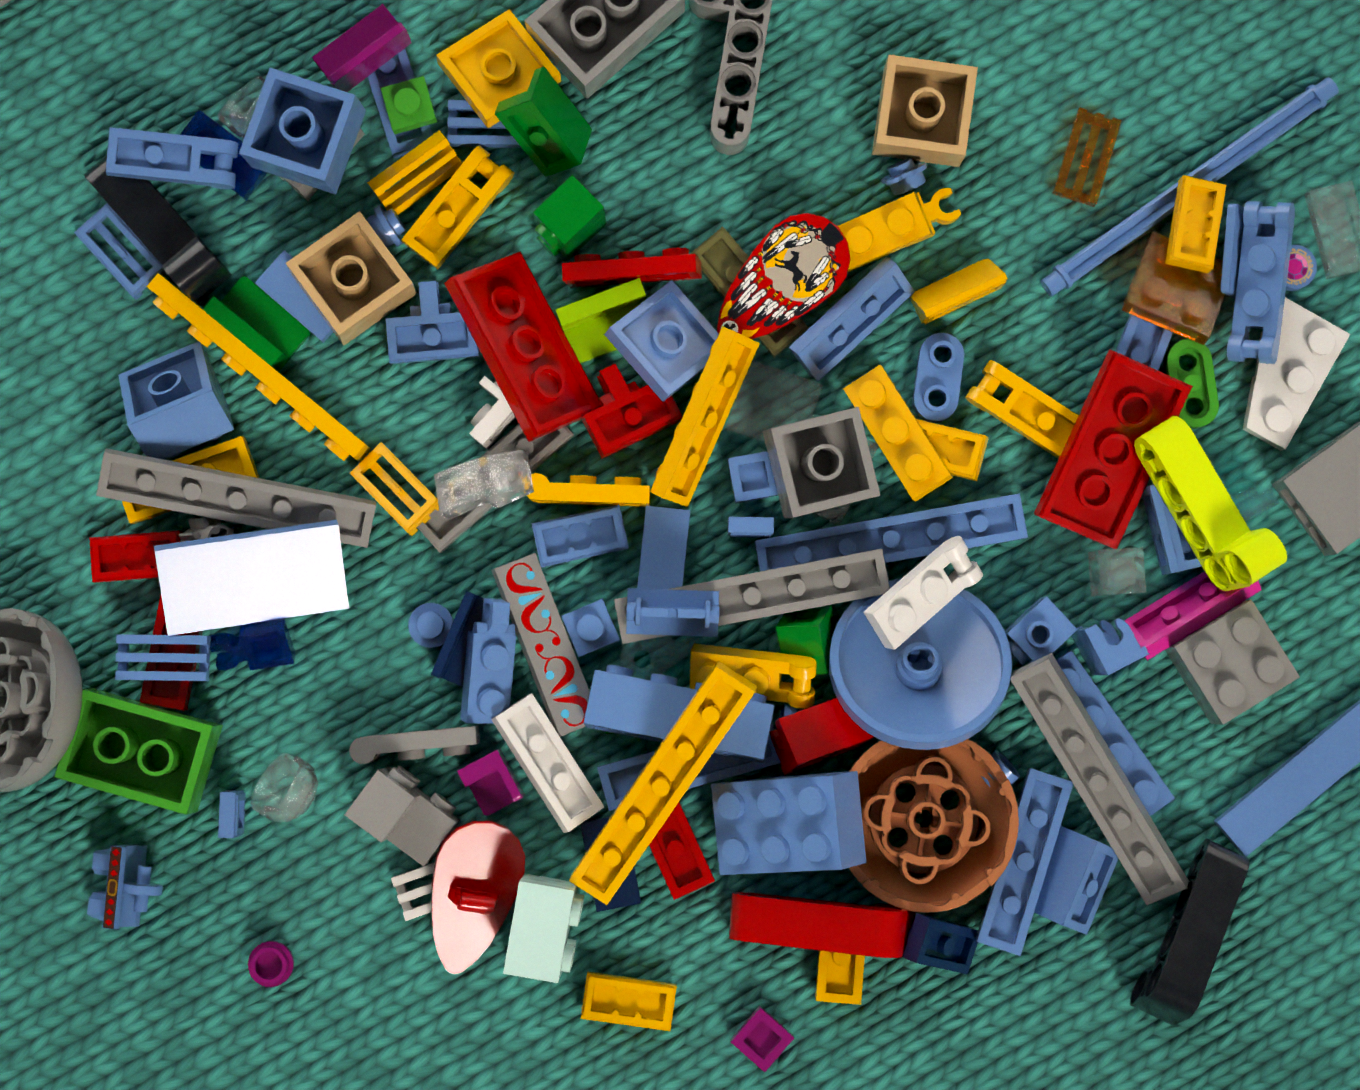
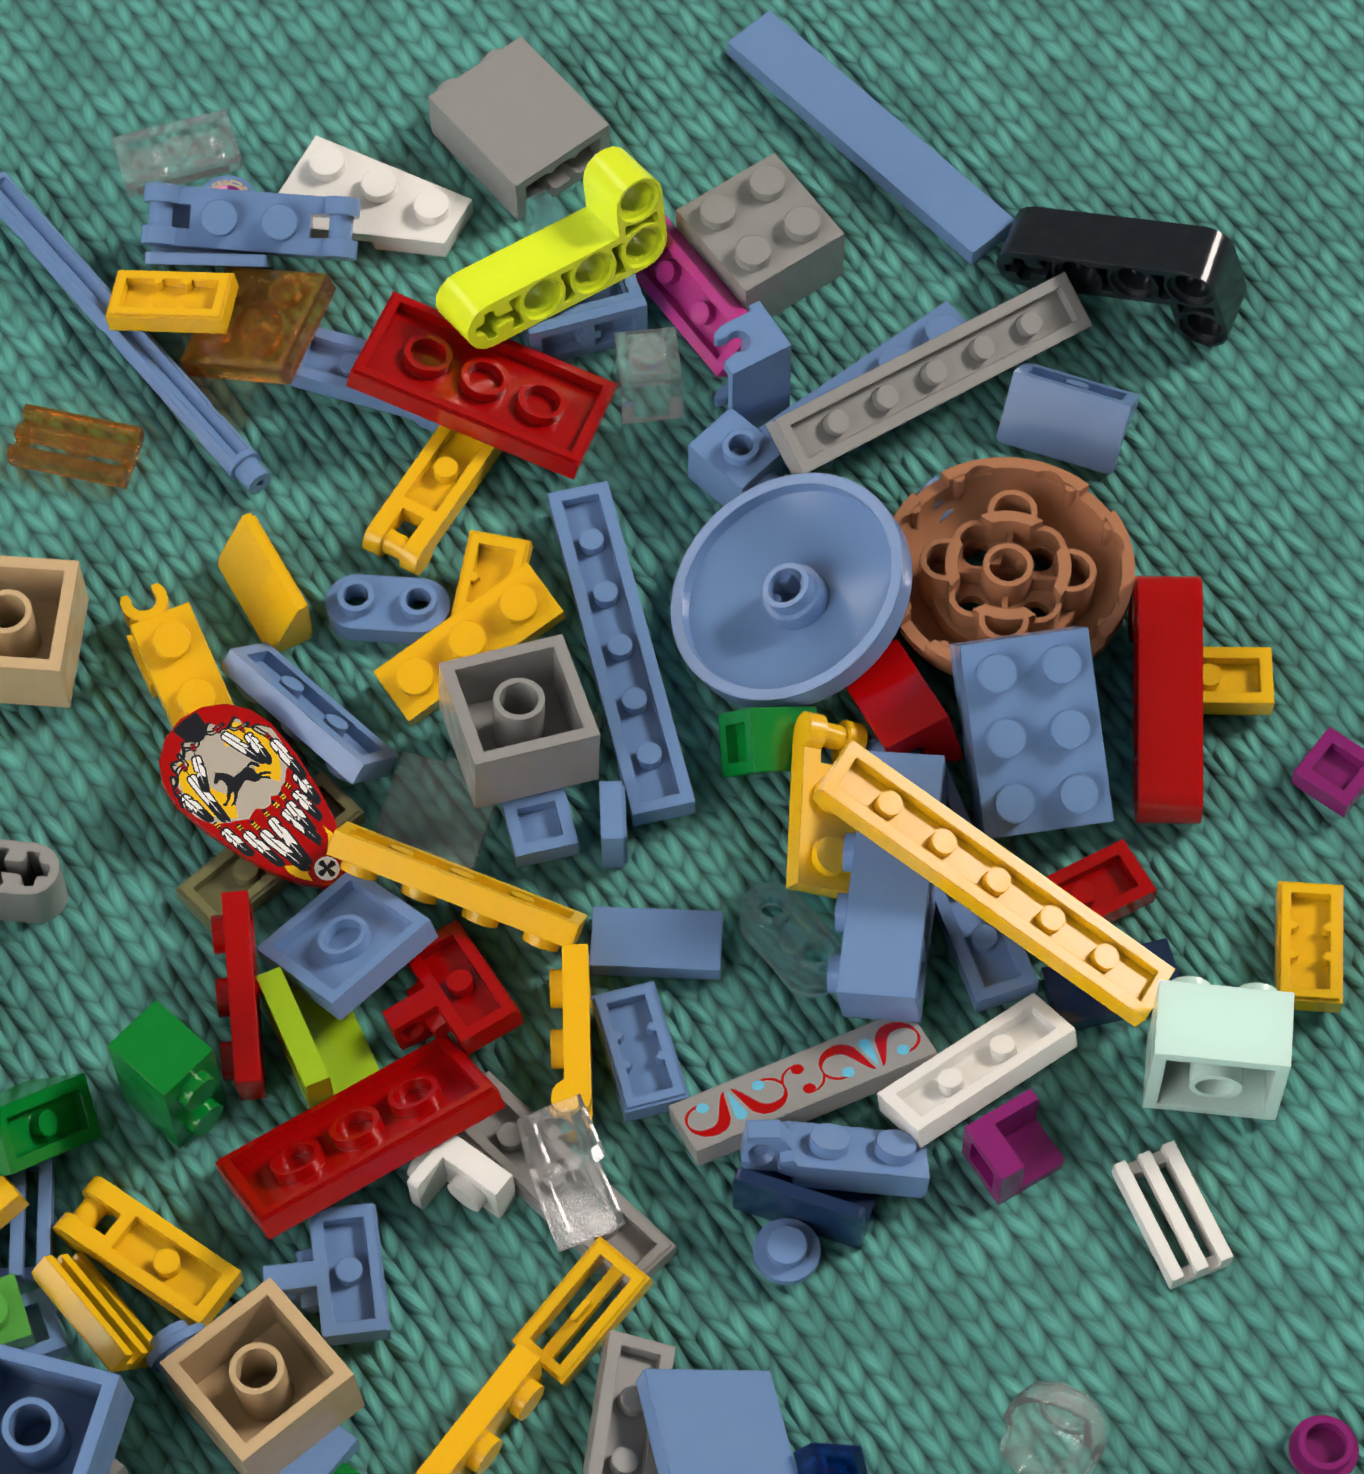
camera: 90 degrees left, 25 degrees down
(403, 814) = (1071, 1260): light grey brick -> none
(413, 744) = (966, 1259): light grey plate -> none
(473, 890) = (1176, 1159): shield -> none
(590, 627) = (771, 1030): medium blue plate -> none
(672, 612) = (745, 886): medium blue hinge -> none
(786, 589) = (714, 807): light grey plate -> none
(904, 176) = (103, 658): medium blue plate -> none
(922, 593) = (692, 589): white plate -> none
(941, 944) = (1173, 548): dark blue plate -> none
(1018, 888) = (1118, 476): medium blue plate -> none
(1200, 377) = (370, 296): bright green plate -> none

